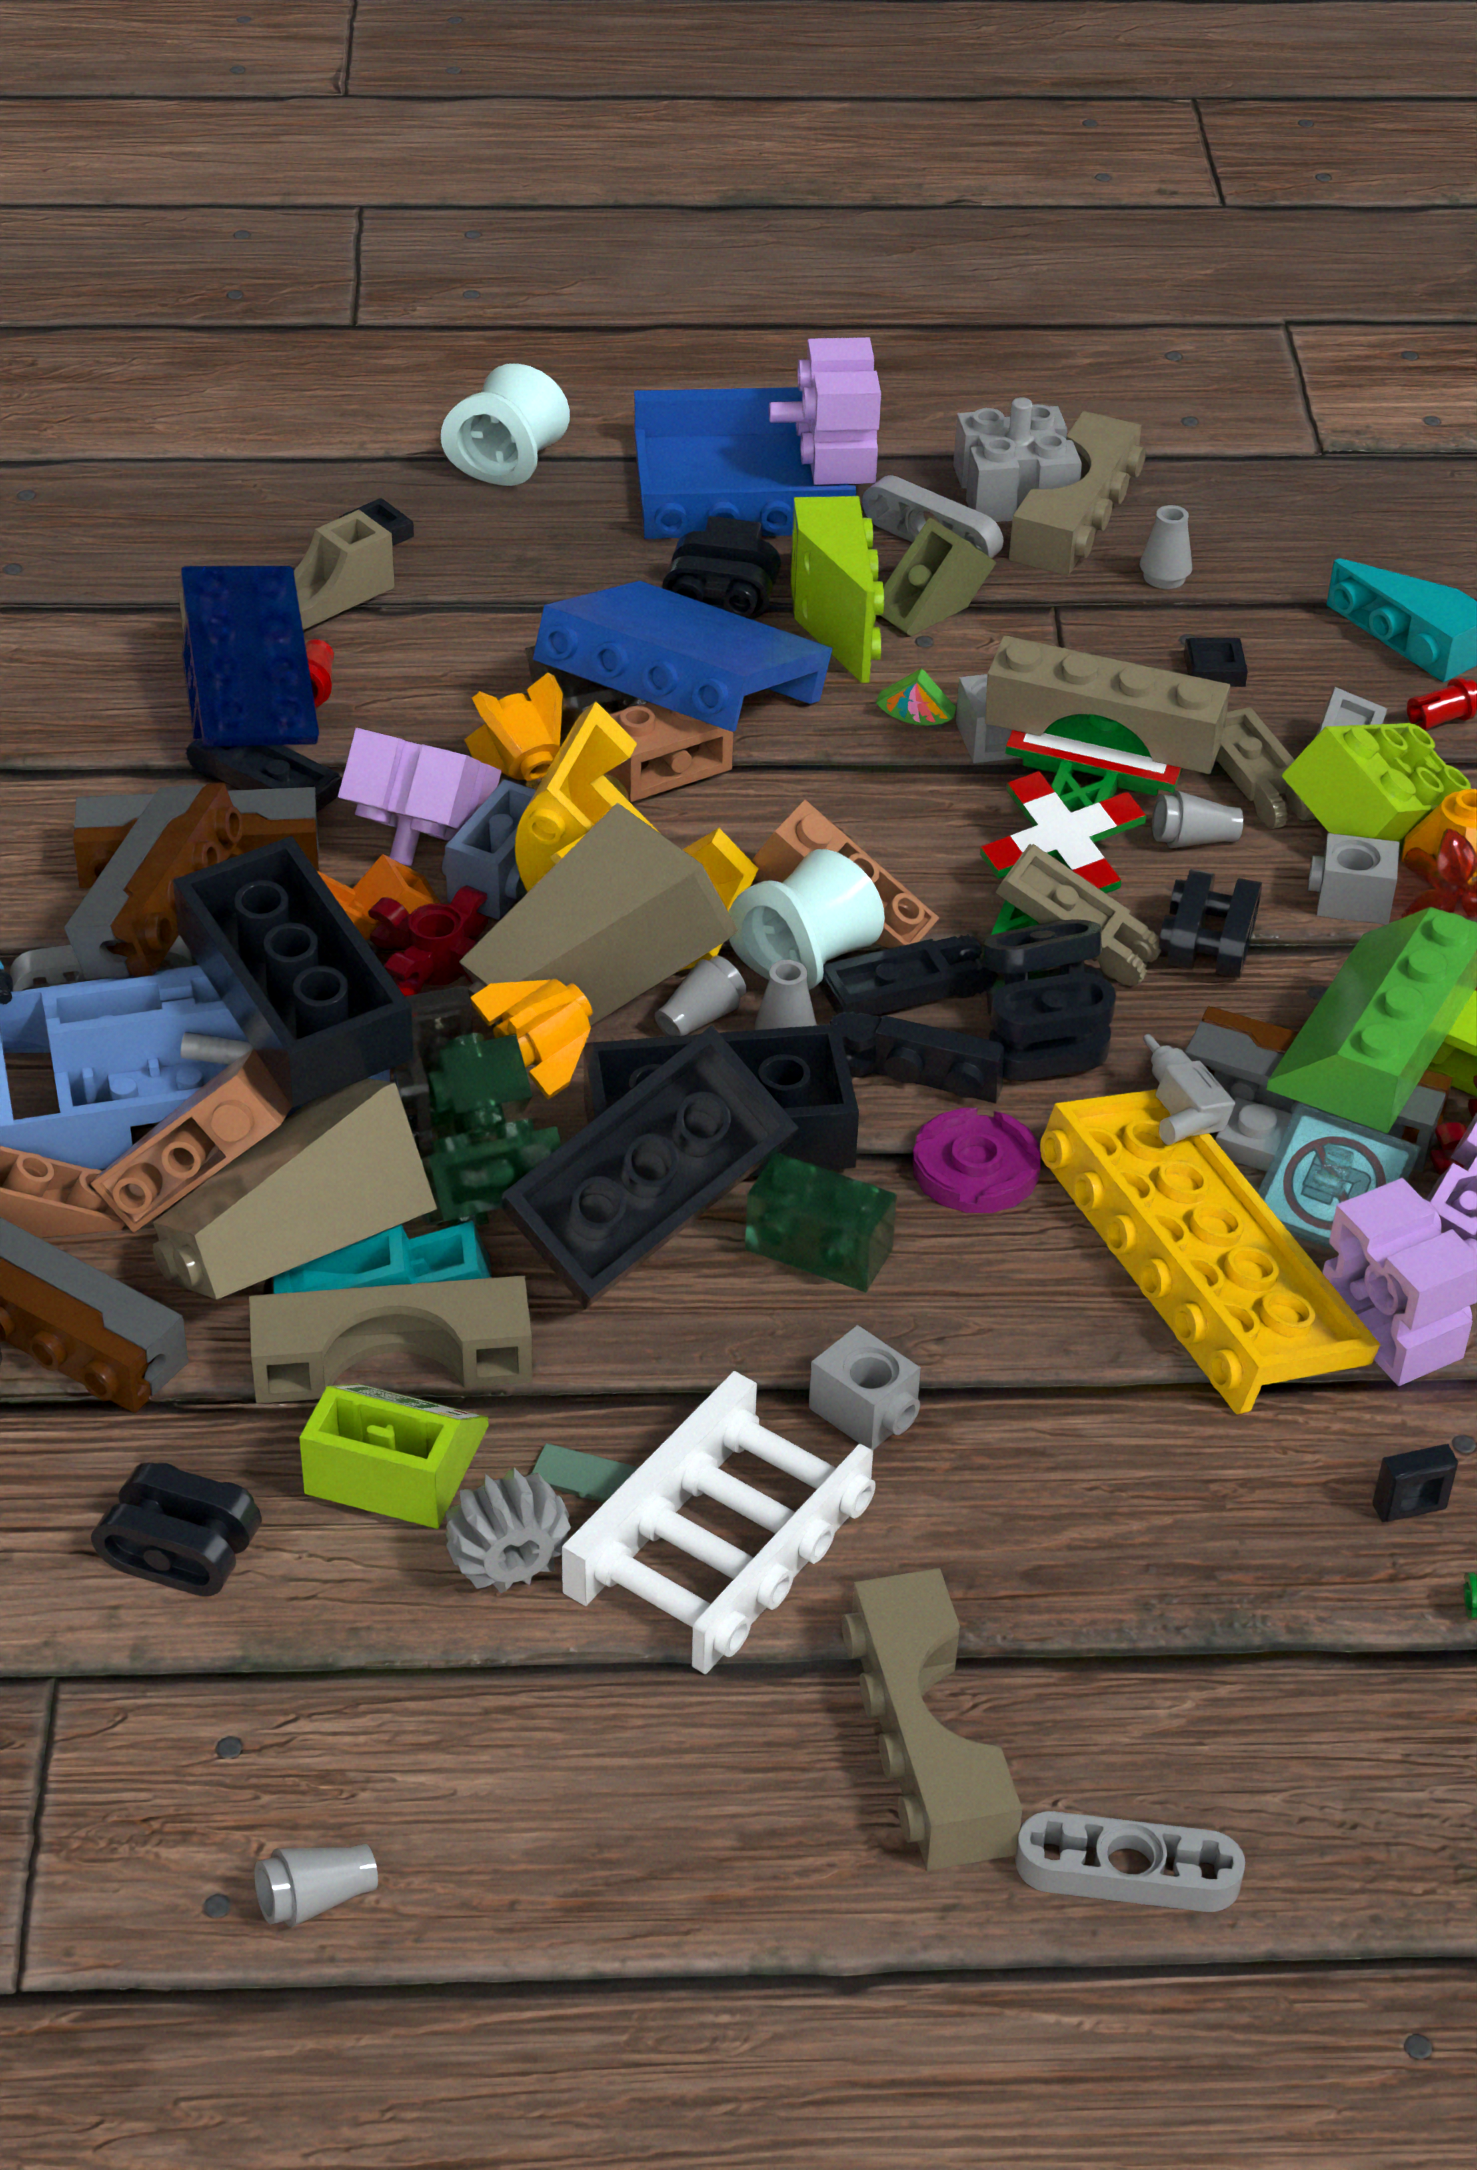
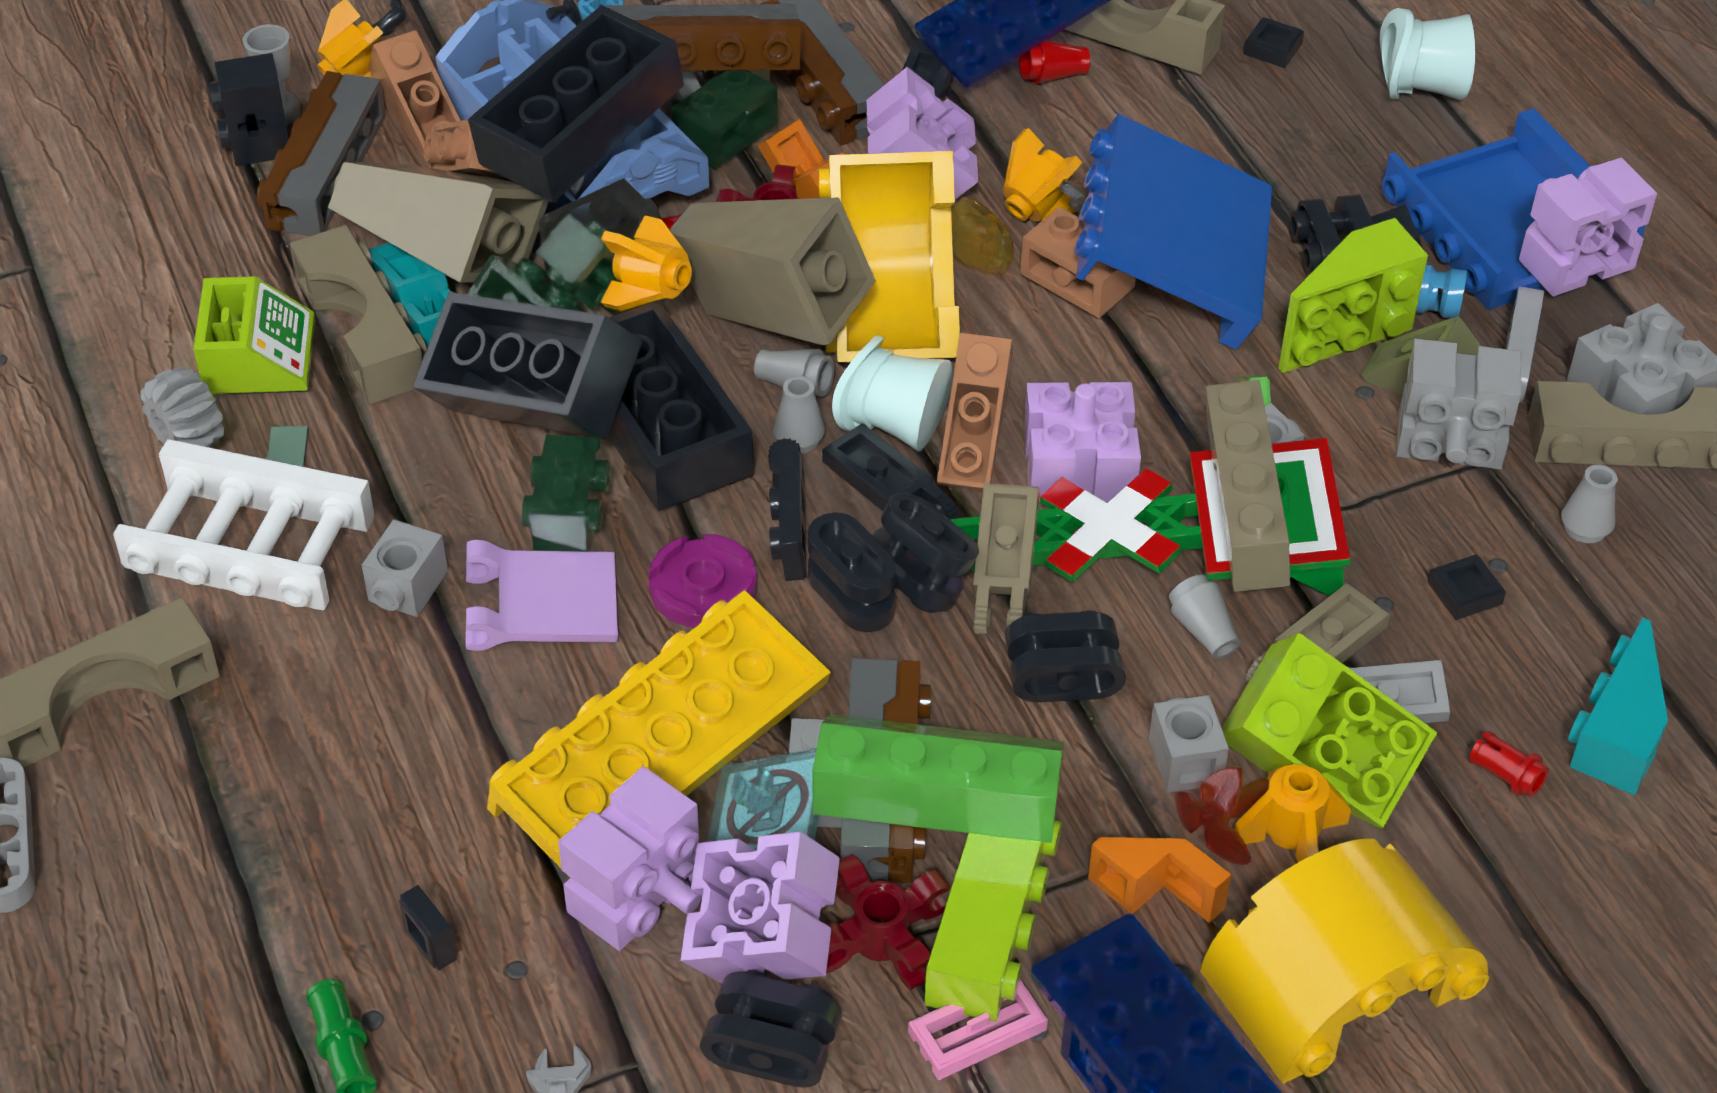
camera: 70 degrees right, 5 degrees up
(177, 1528) = (167, 277): black brick -> none
(931, 821) = (1081, 436): none -> lavender brick
(949, 1287) = (542, 596): none -> lavender flag
(1023, 568) = (1458, 404): none -> light grey brick
(1189, 1093) = (807, 677): light grey piece -> none

